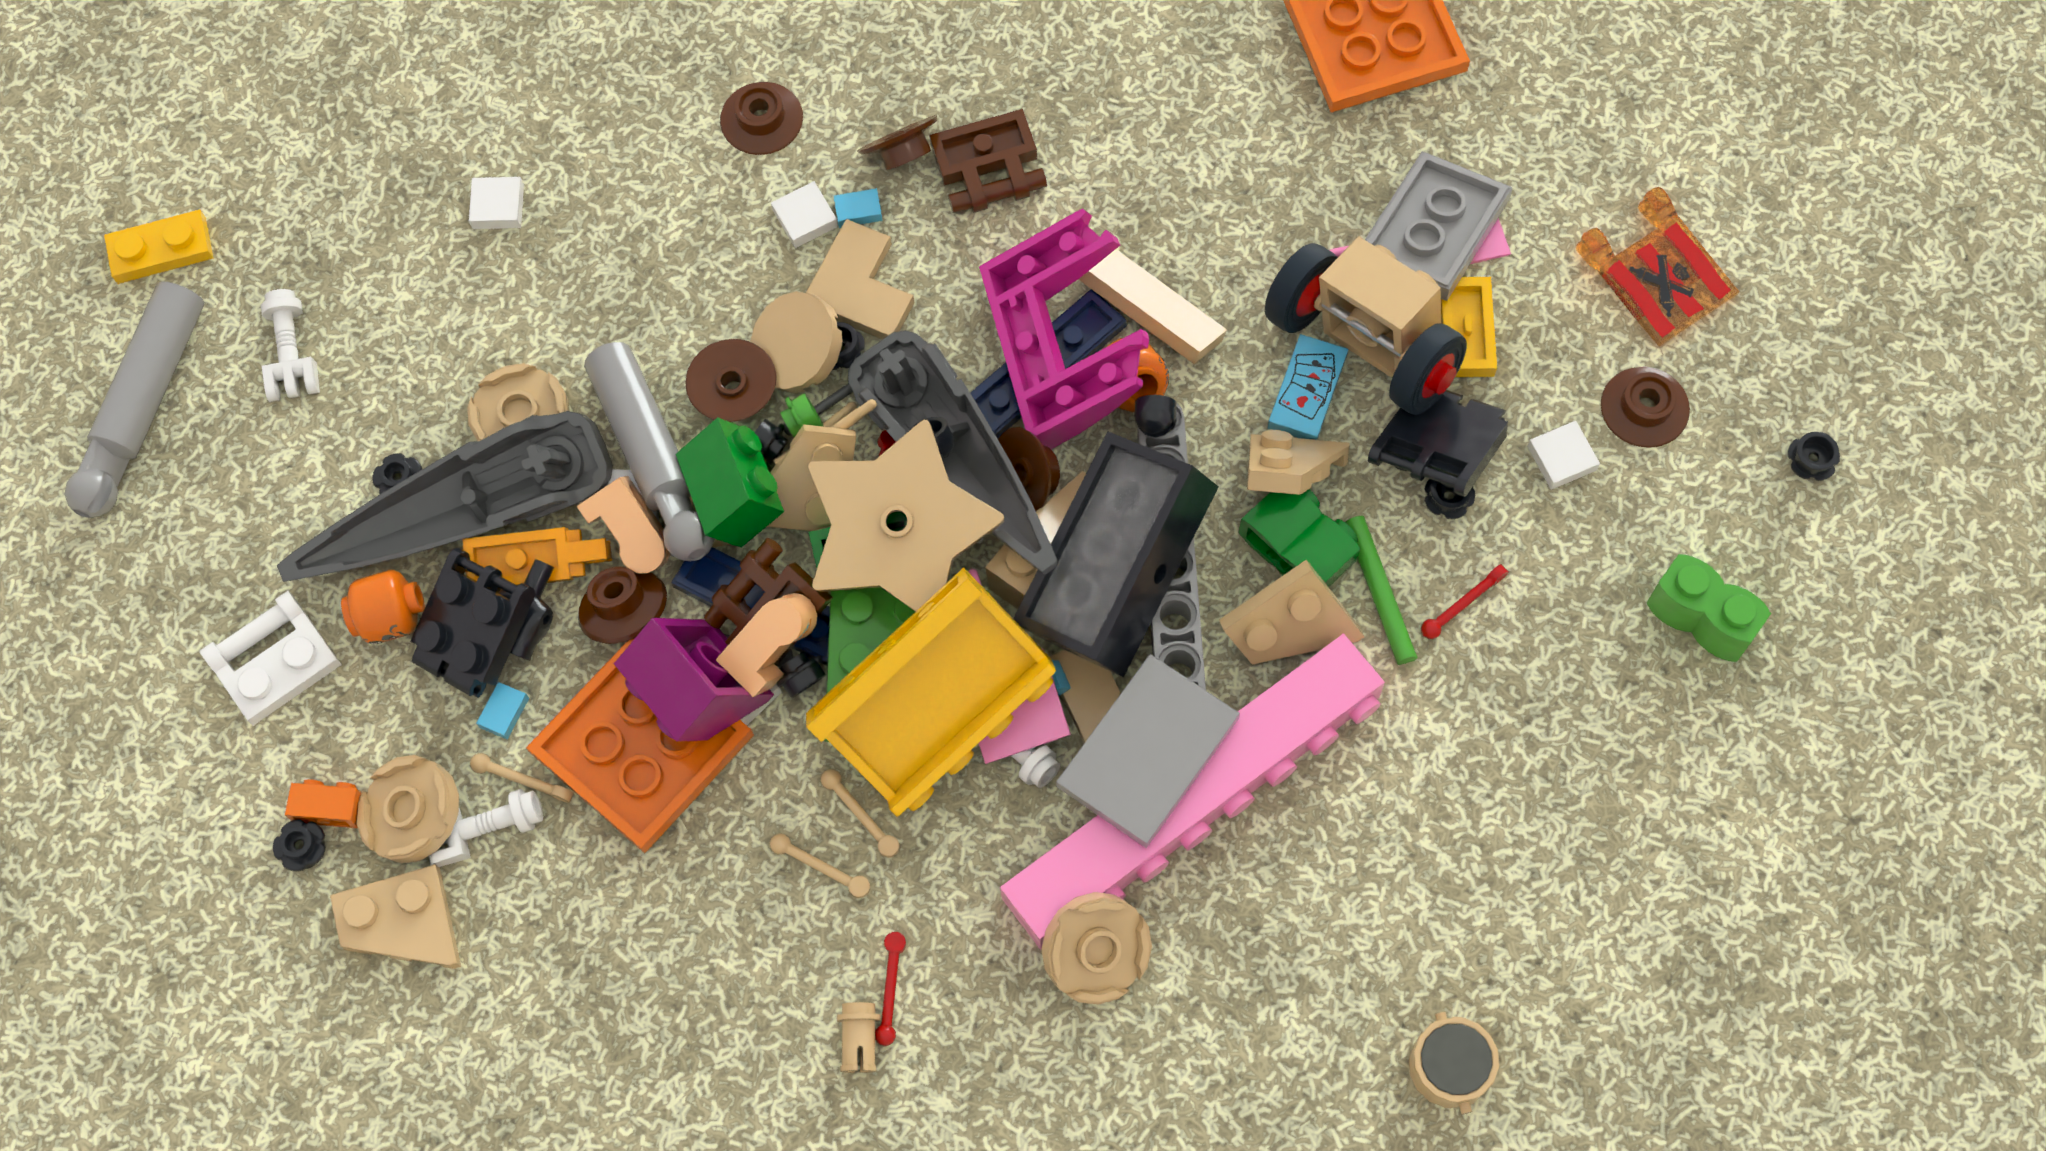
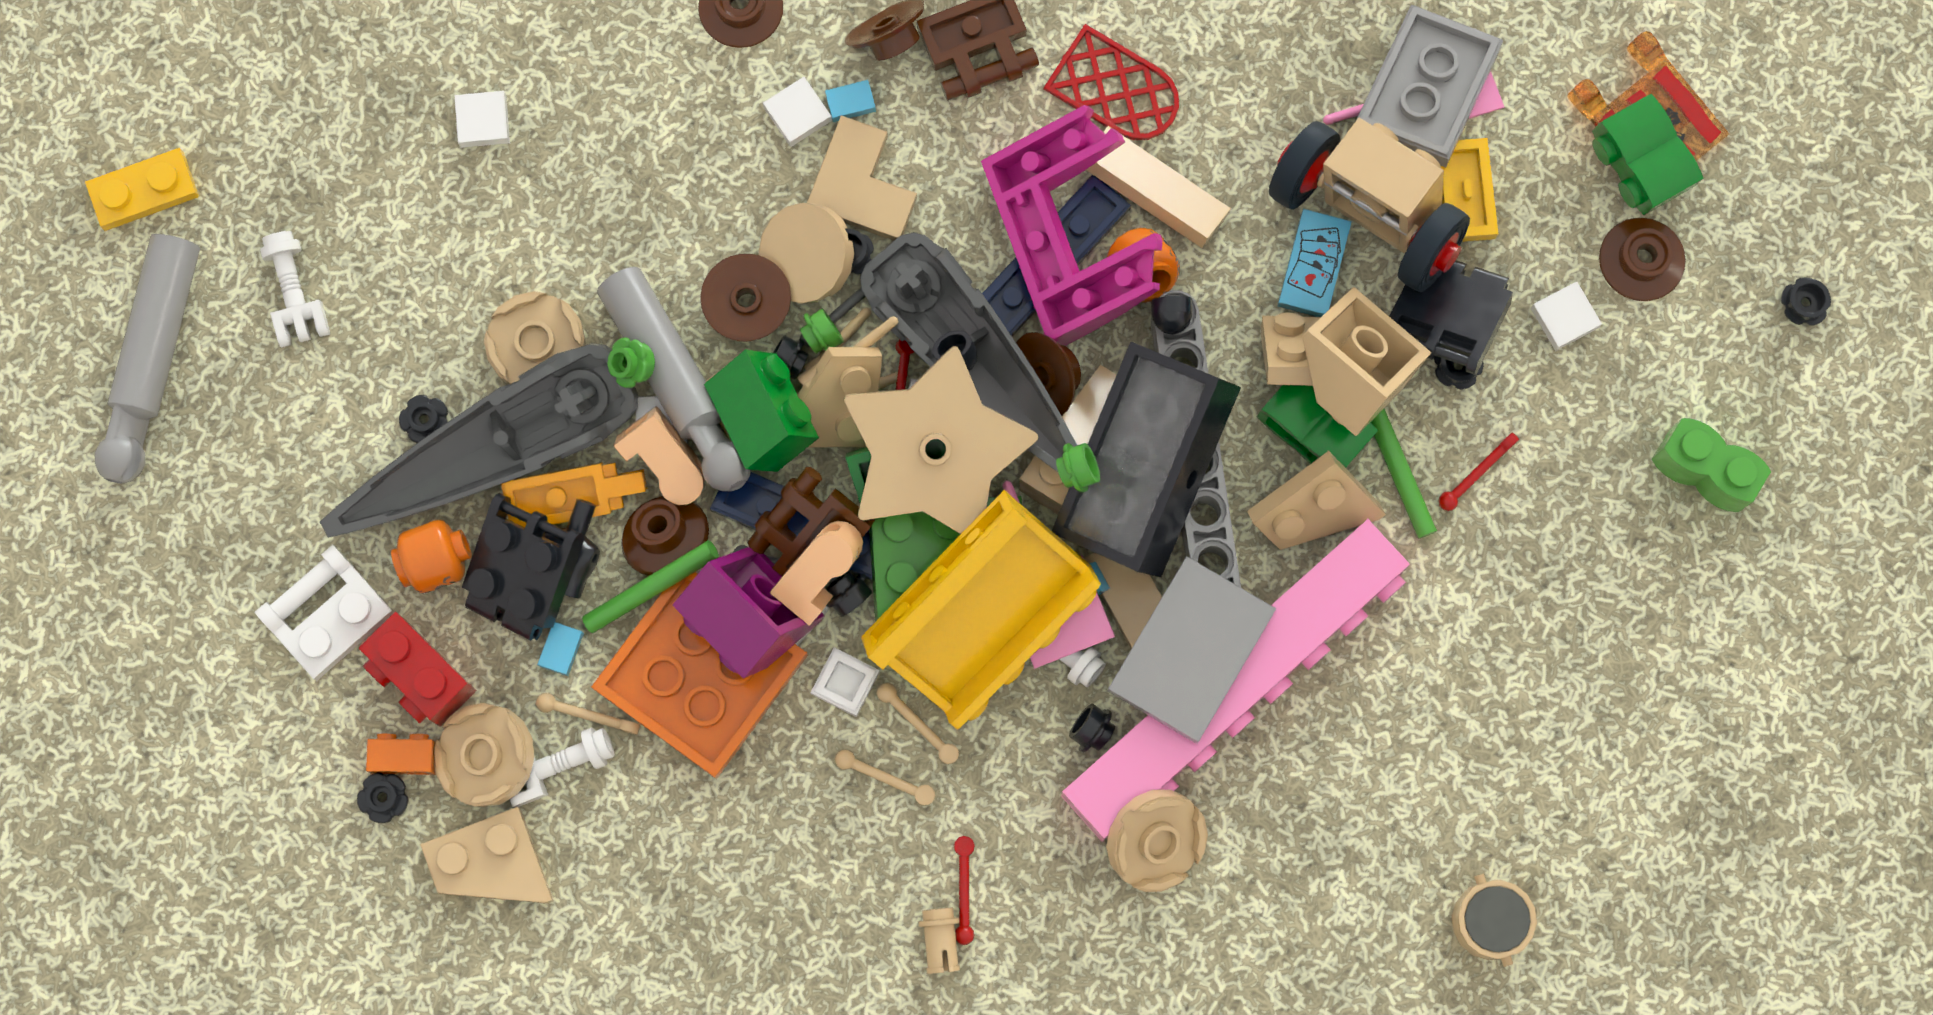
camera: 10 degrees left, 10 degrees up
(351, 716) = (417, 669): none -> red brick
(591, 655) = (650, 587): none -> bright green bar
(605, 428) = (630, 362): none -> bright green plate
(789, 765) = (845, 682): none -> white tile
(1040, 830) = (1092, 728): none -> black plate
(1041, 548) = (1078, 467): none -> bright green plate
(1151, 193) = (1144, 66): none -> red window
(1344, 472) = (1359, 360): none -> tan slope
(1652, 301) = (1646, 155): none -> green brick

